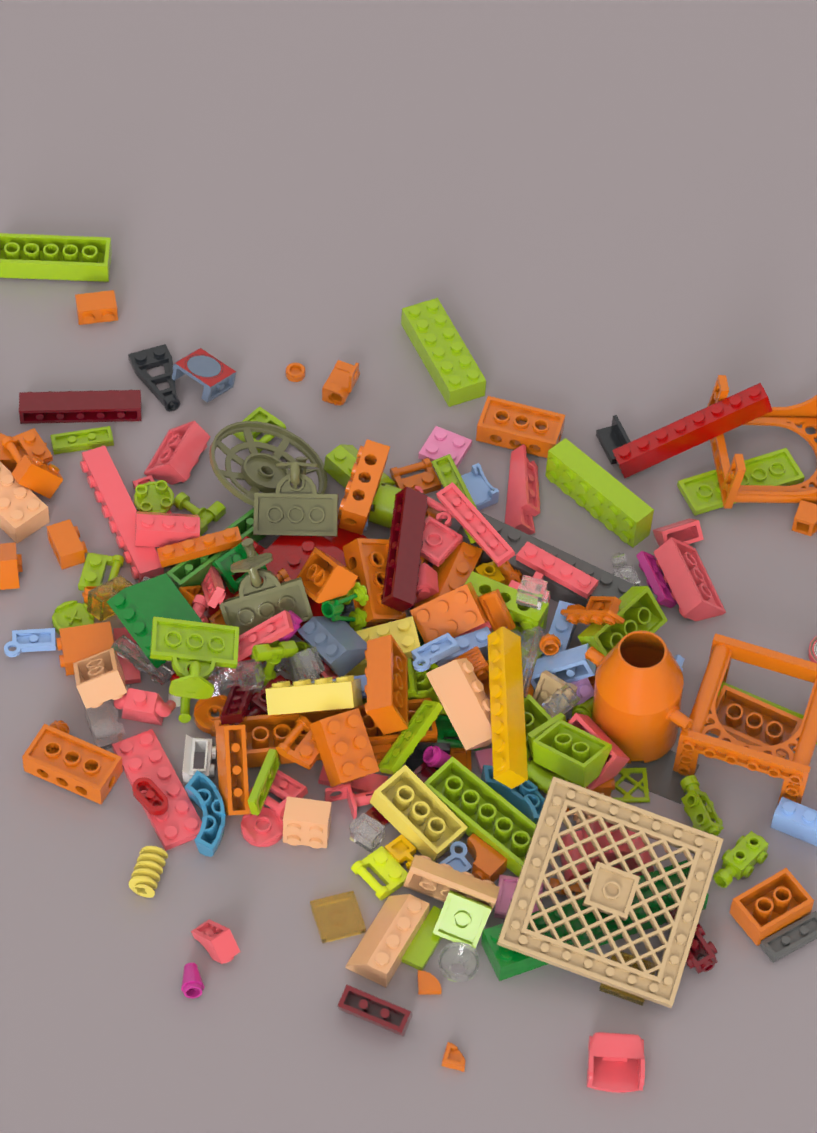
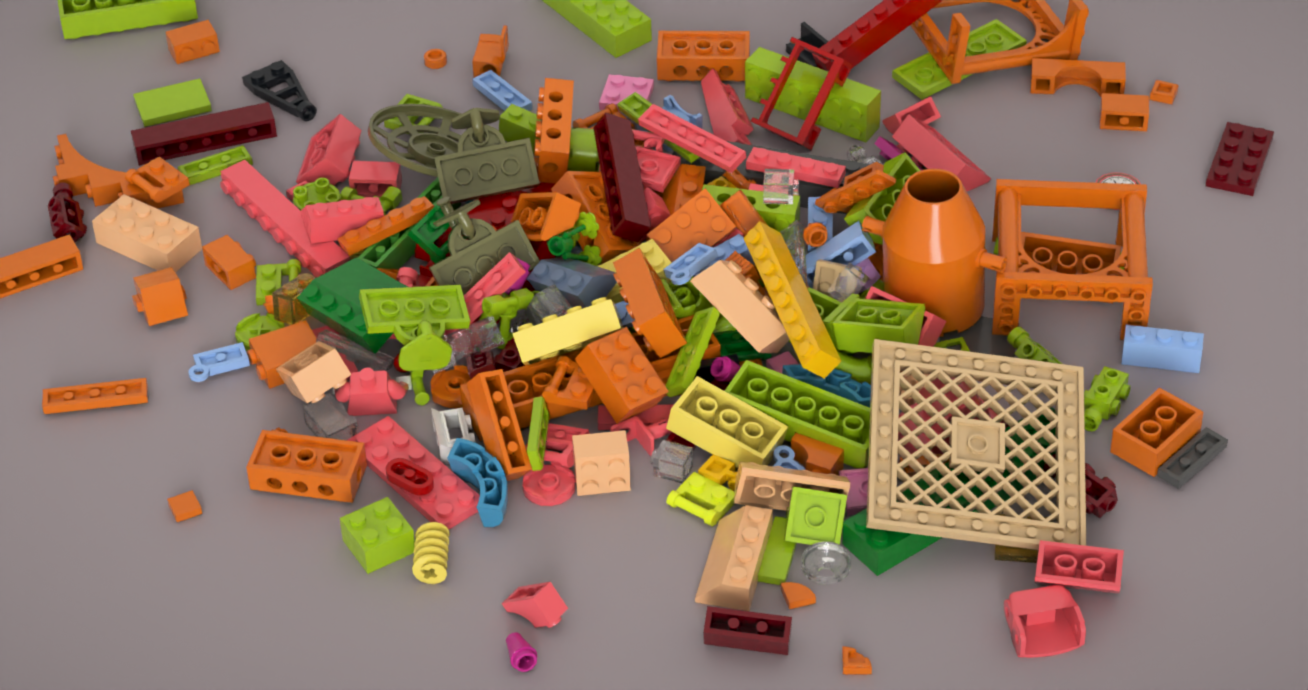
camera: 10 degrees left, 10 degrees down
(37, 476) = (177, 201): orange brick -> none
(64, 366) = (172, 102): none -> lime tile
(110, 843) = (377, 535): none -> lime brick
(206, 488) = (374, 177): none -> coral brick
(207, 371) = (352, 75): sand blue panel -> none
(213, 588) = (417, 256): coral plate -> none
(337, 916) = (668, 552): clear yellow tile -> none
(339, 423) = (500, 91): none -> light blue plate
(618, 488) = (809, 131): none -> red hinge
(659, 1022) = (1079, 566): none -> coral slope

